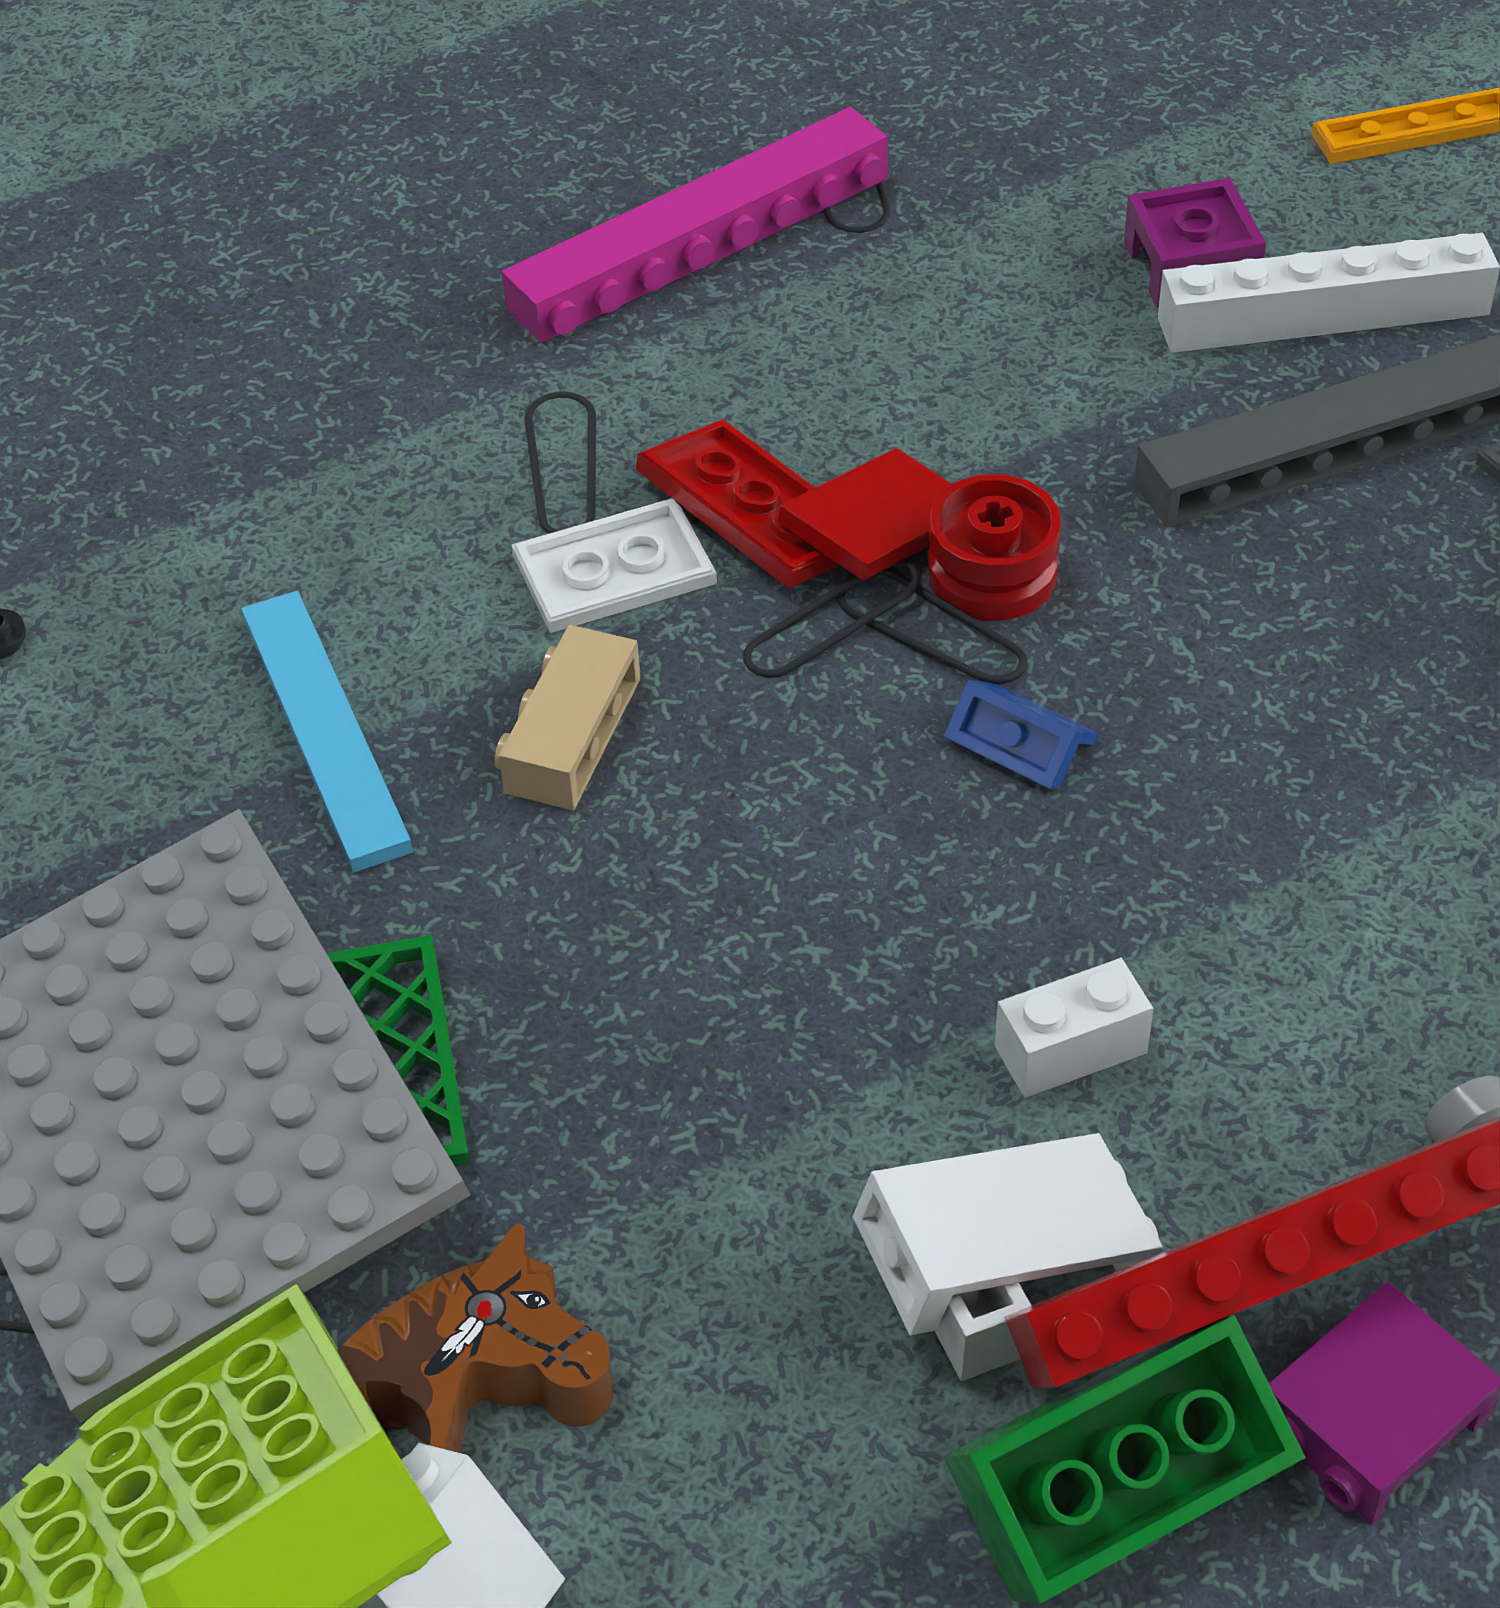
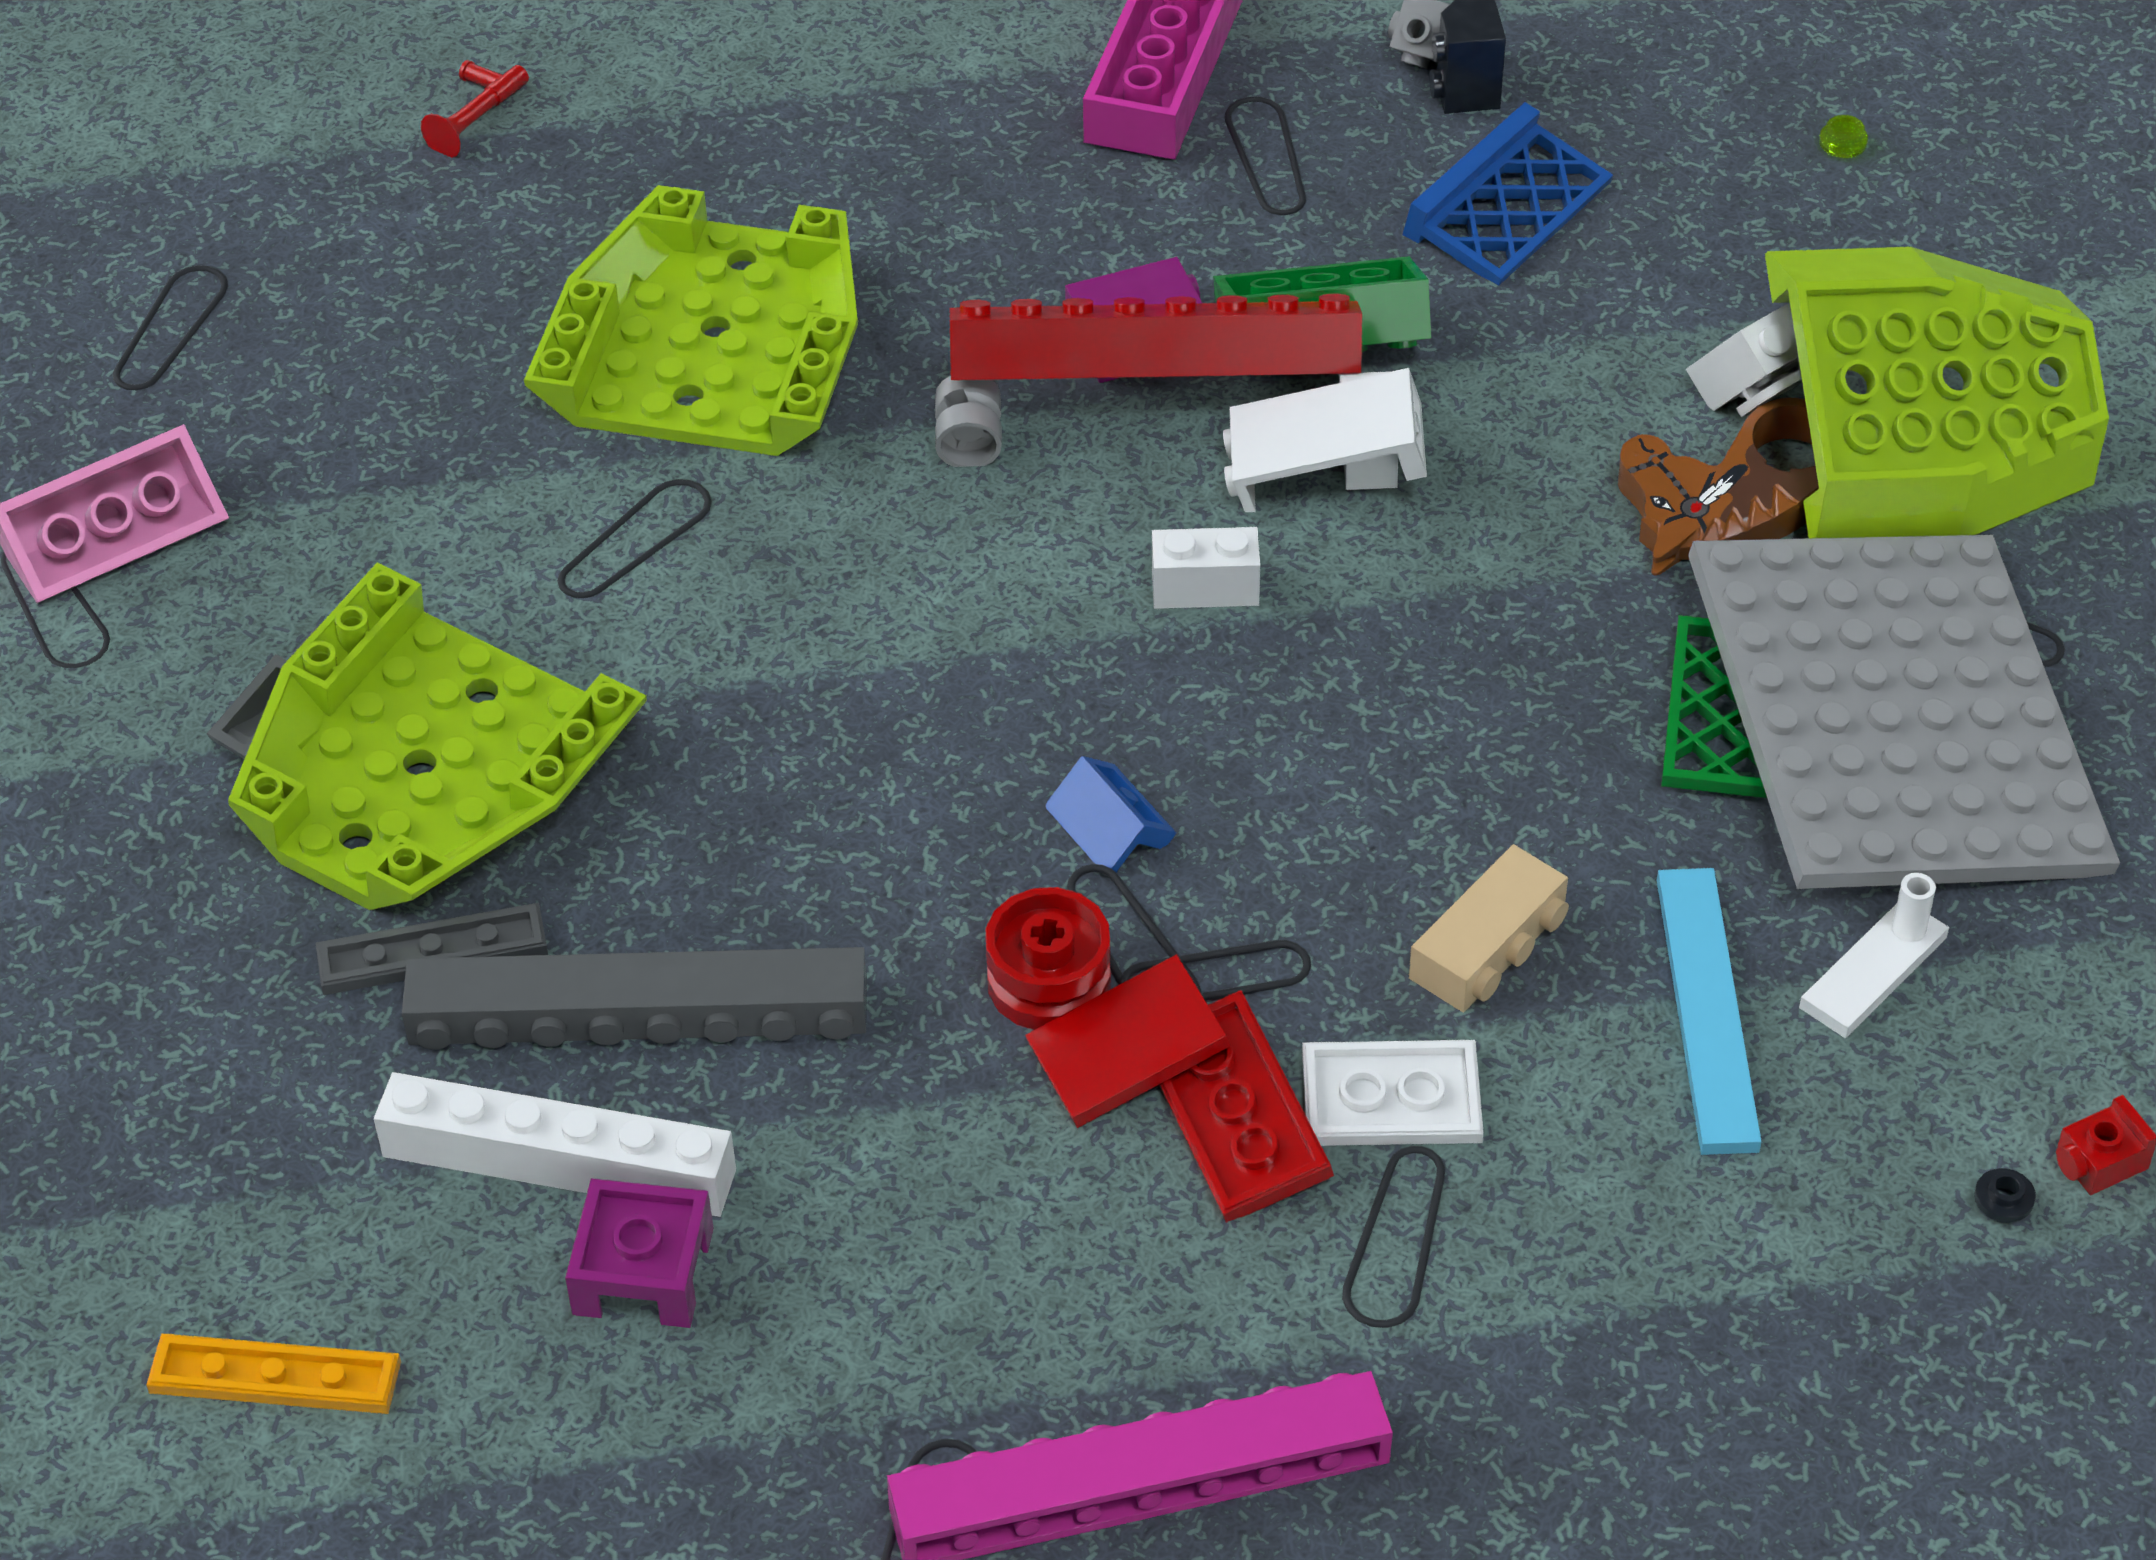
camera: 160 degrees left, 0 degrees up
(154, 812) = (1878, 960): none -> white piece

